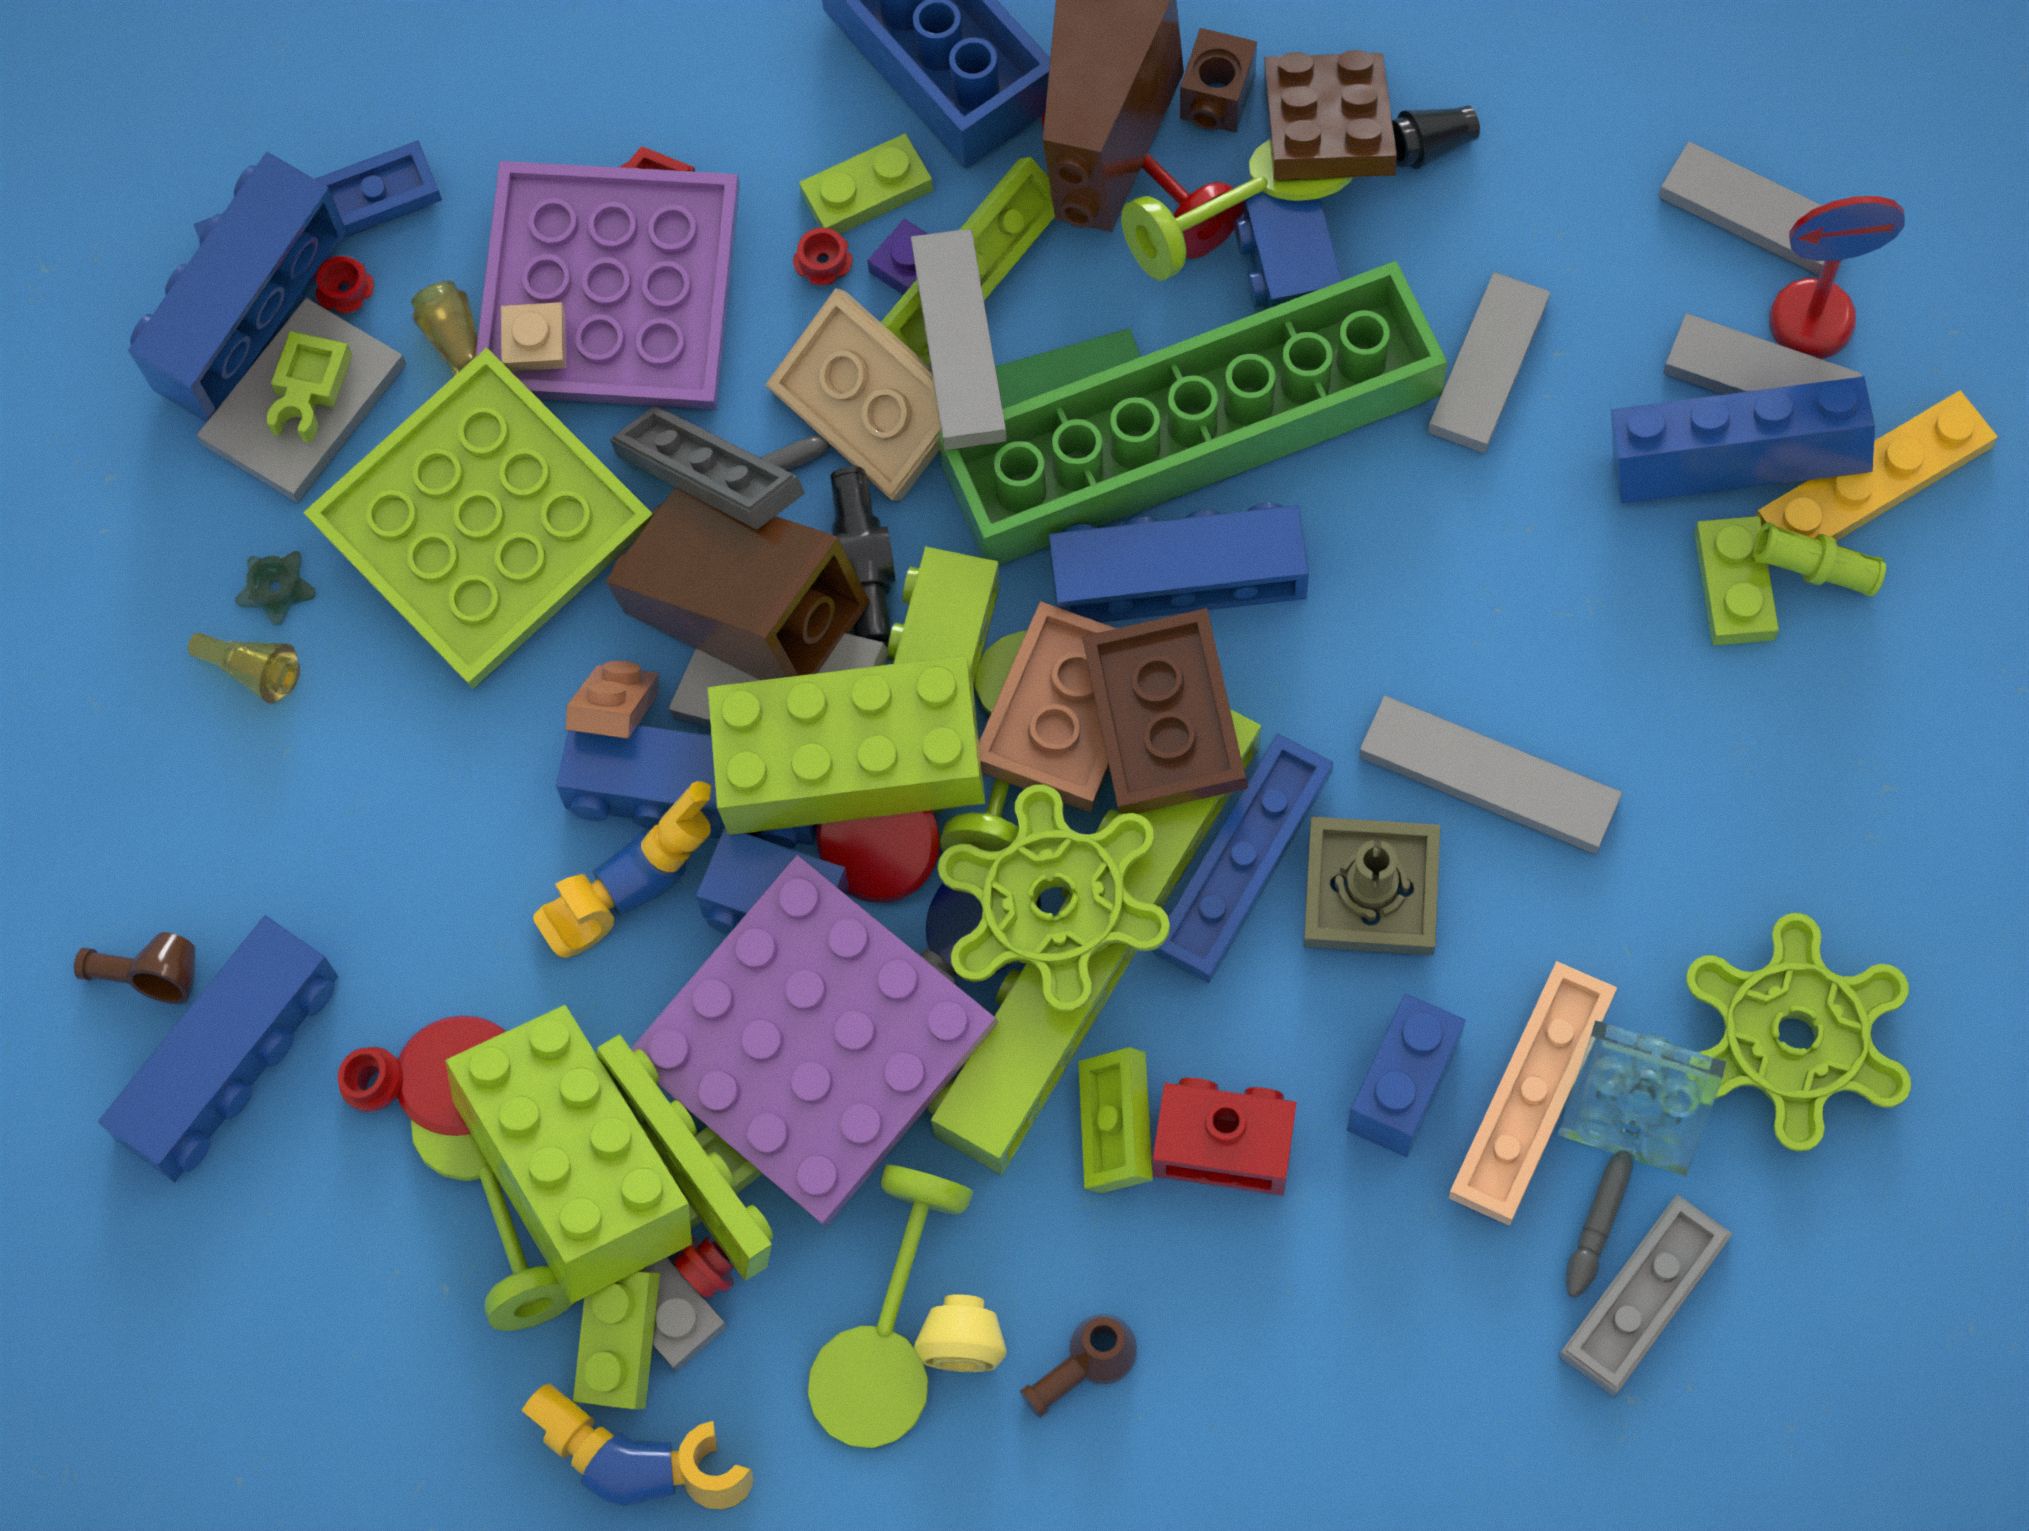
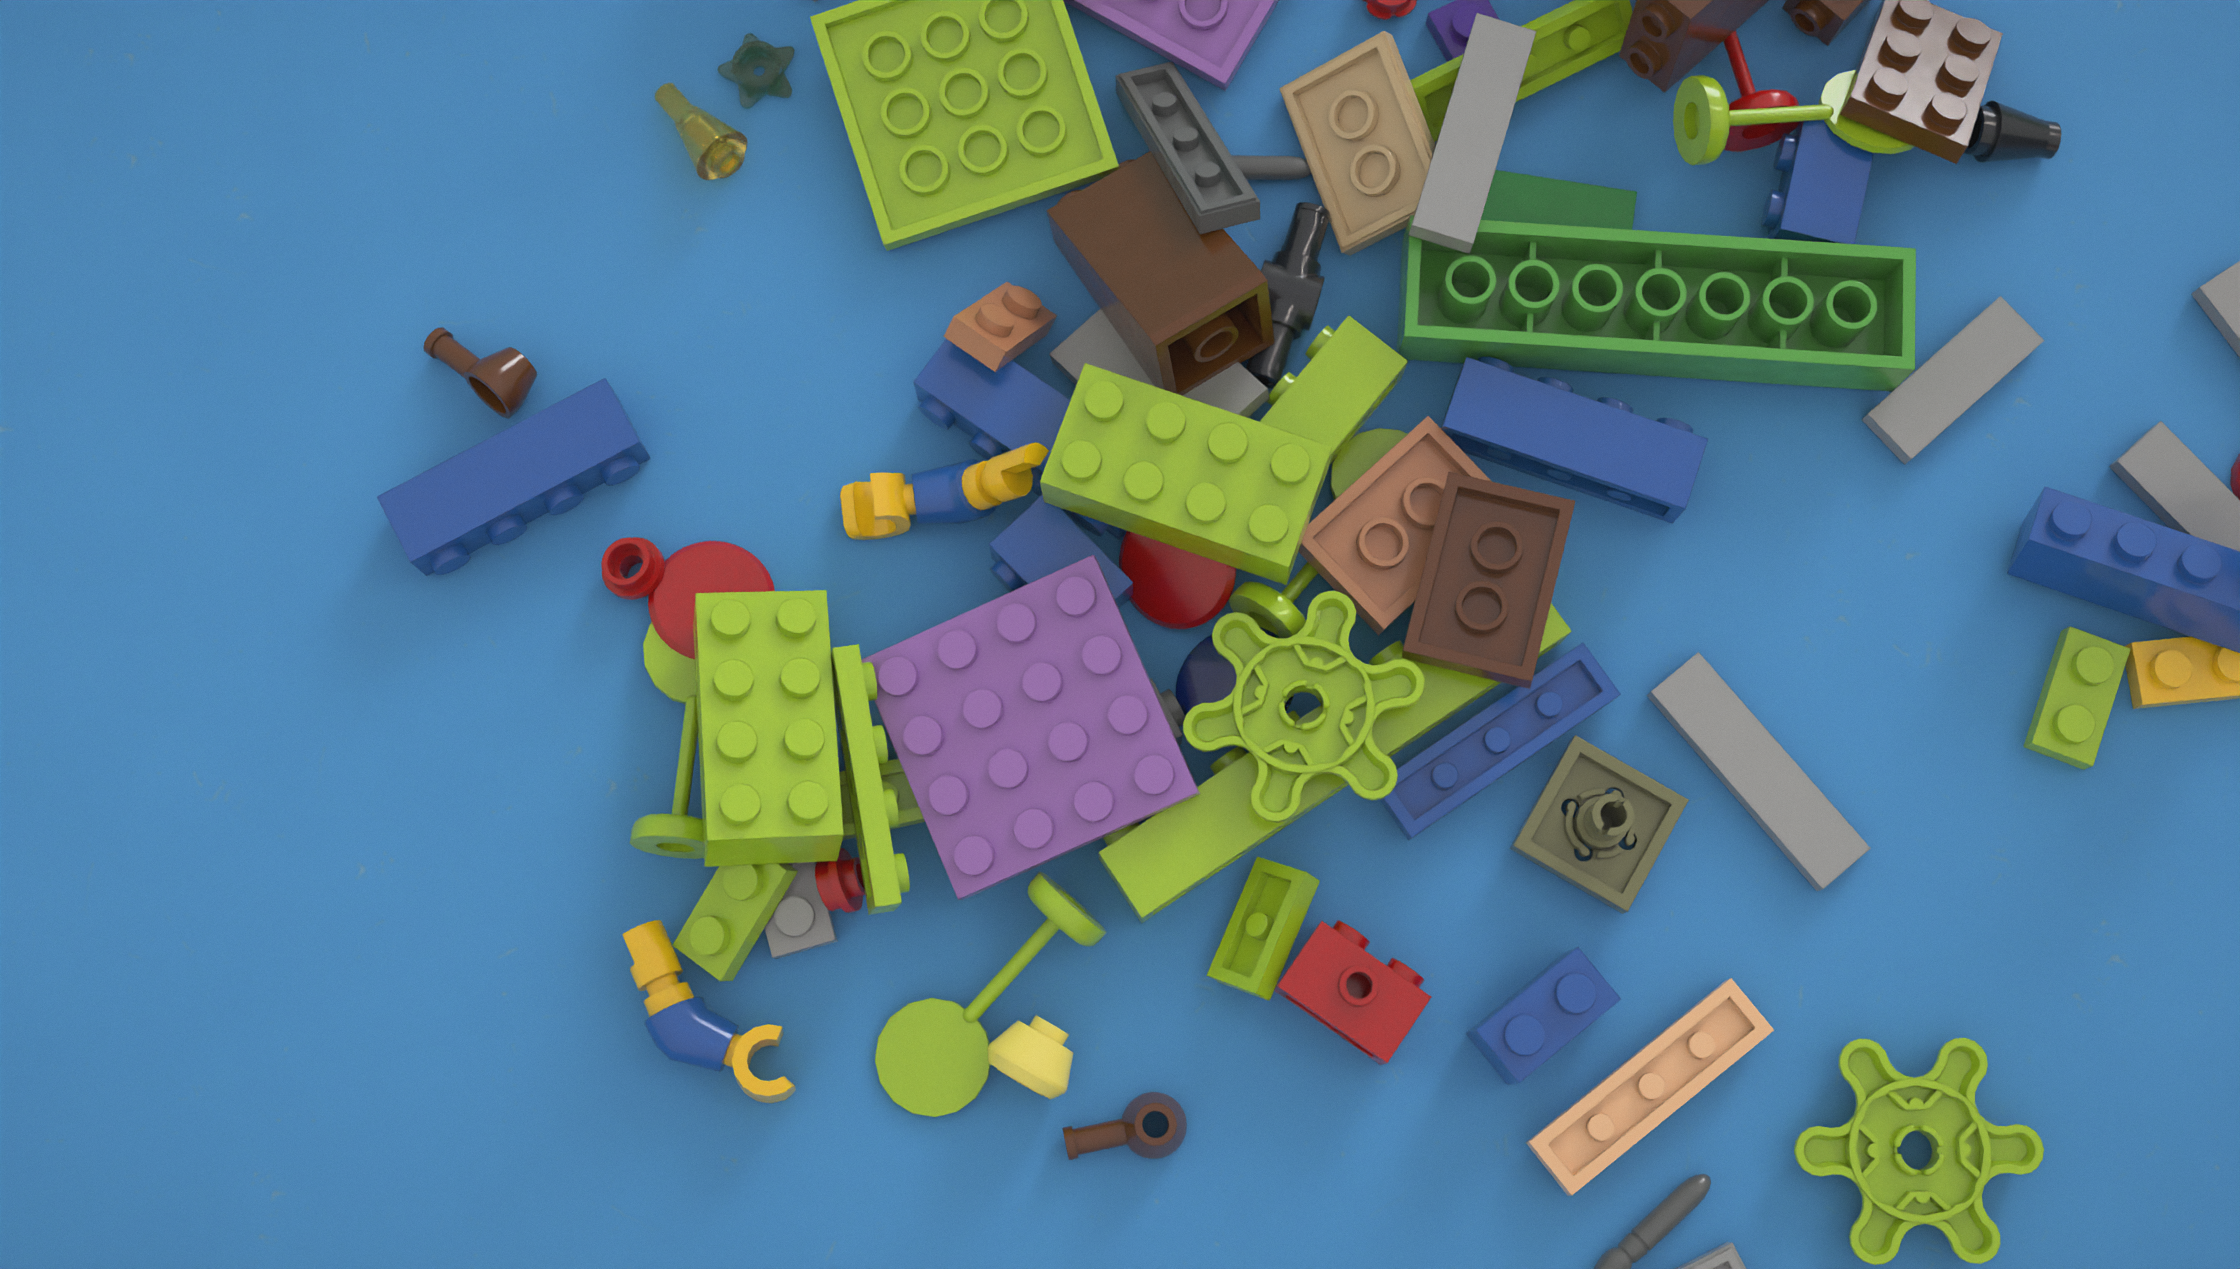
camera: 20 degrees right, 10 degrees up
(1642, 1086) = (1757, 1139): clear light blue plate -> none
(1819, 559) = (2165, 719): lime pin -> none

